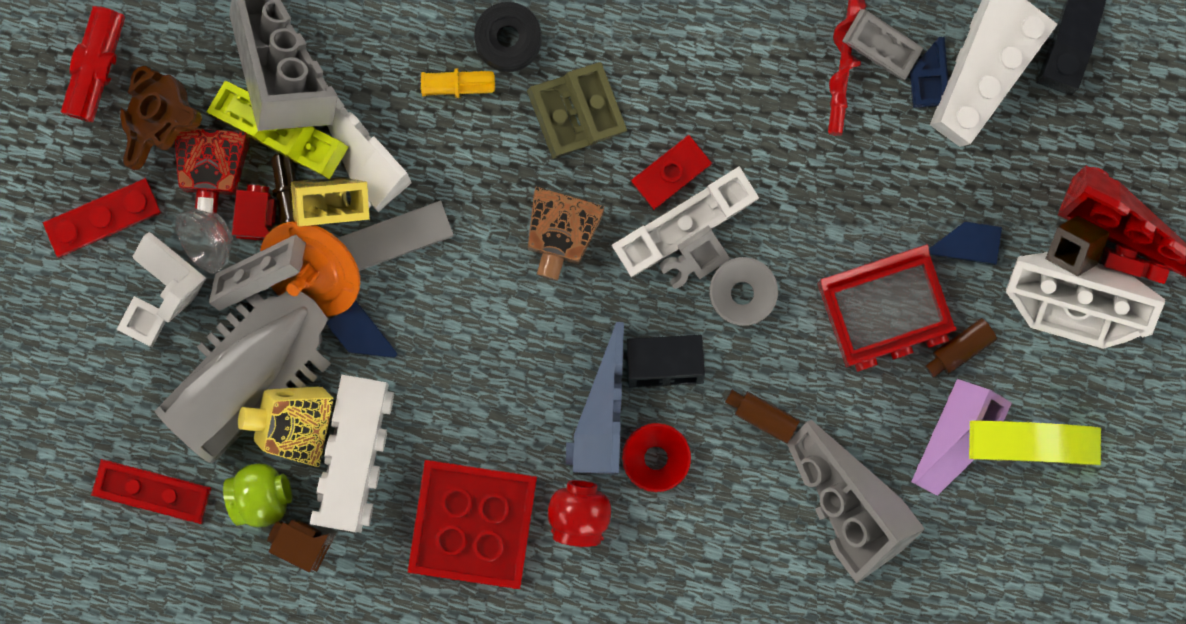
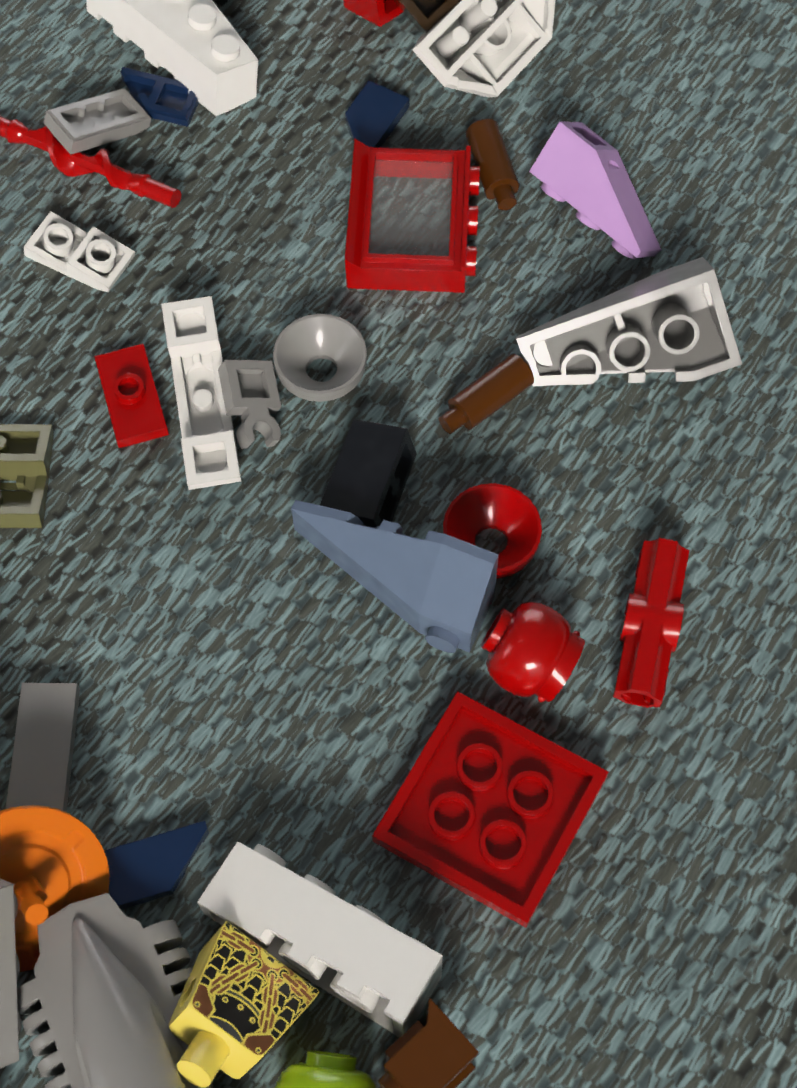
camera: 65 degrees left, 20 degrees down
(561, 229) = (136, 542): torso -> none
(633, 583) = (651, 623): none -> red piece
(769, 82) = (81, 255): none -> white slope
(1035, 442) = (635, 111): neon yellow slope -> none

